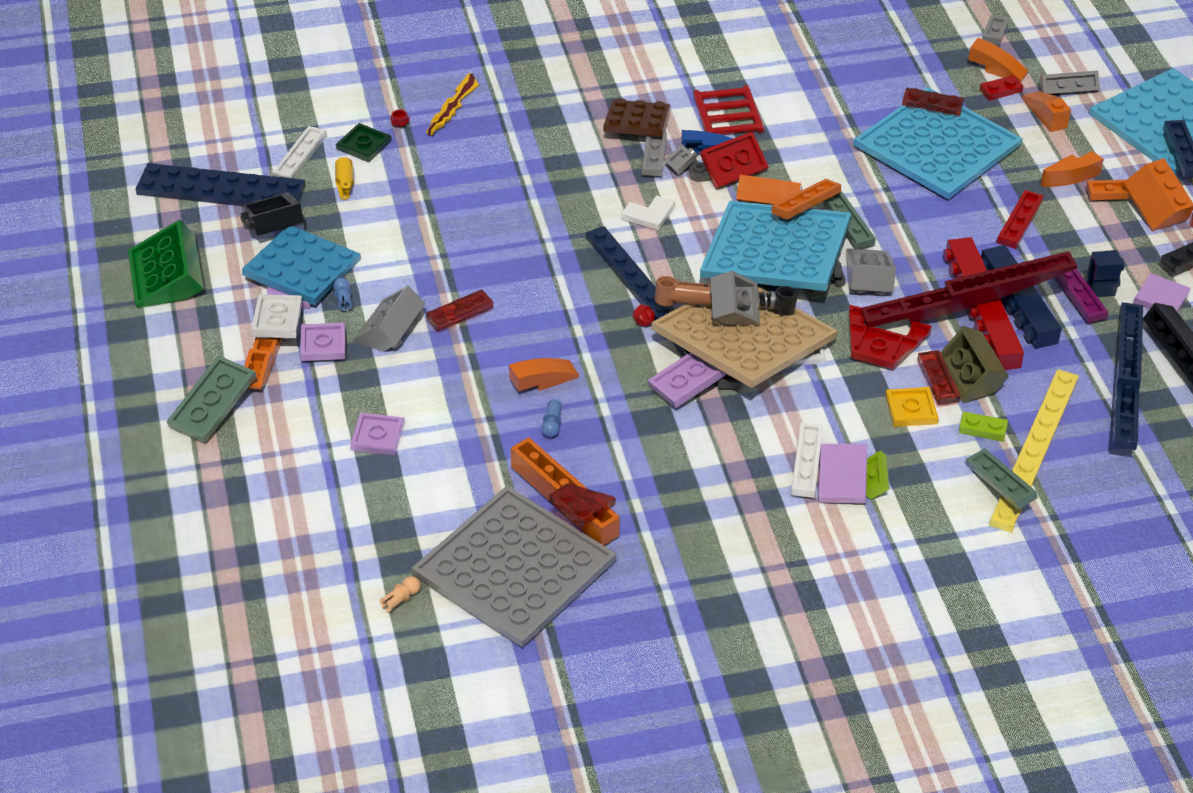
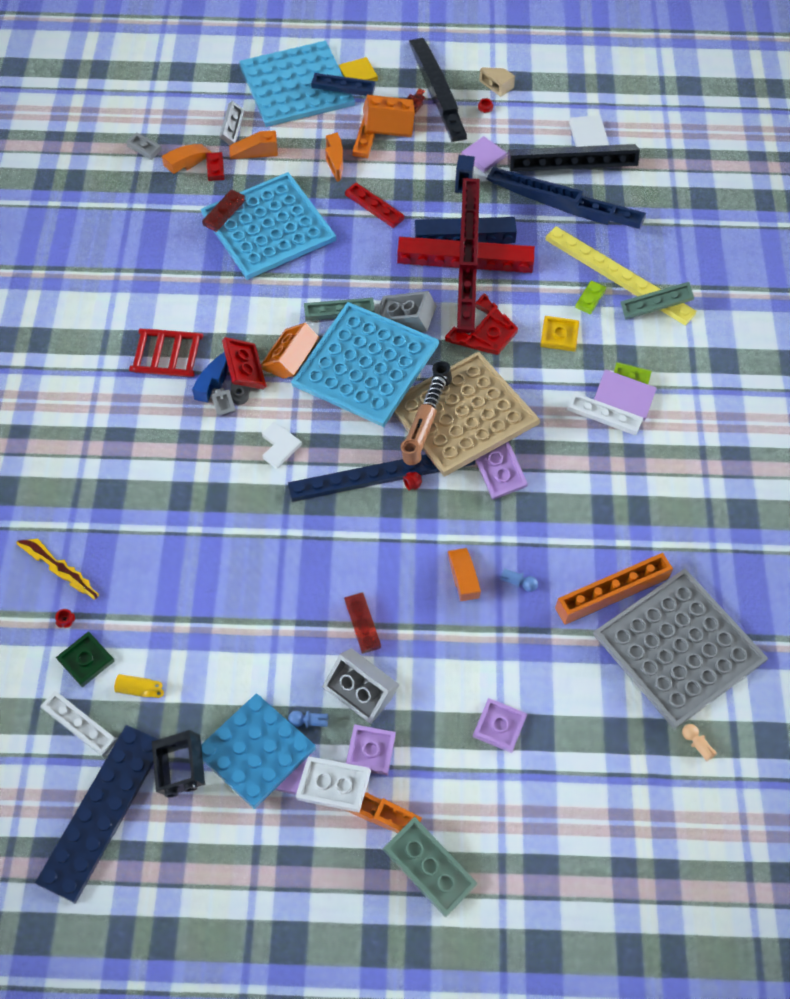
camera: 75 degrees left, 15 degrees up
(165, 267) = (215, 887): green slope -> none
(581, 503) = (647, 576): clear red wing -> none
(637, 117) = (153, 420): reddish brown plate -> none
(654, 155) = (204, 420): light grey plate -> none
(734, 299) = (446, 406): light grey slope -> none
(806, 199) = (322, 325): orange plate -> none
(938, 377) = (536, 306): clear red plate -> none
(973, 364) = (535, 282): olive slope -> none
(1082, 296) = (453, 197): magenta plate -> none

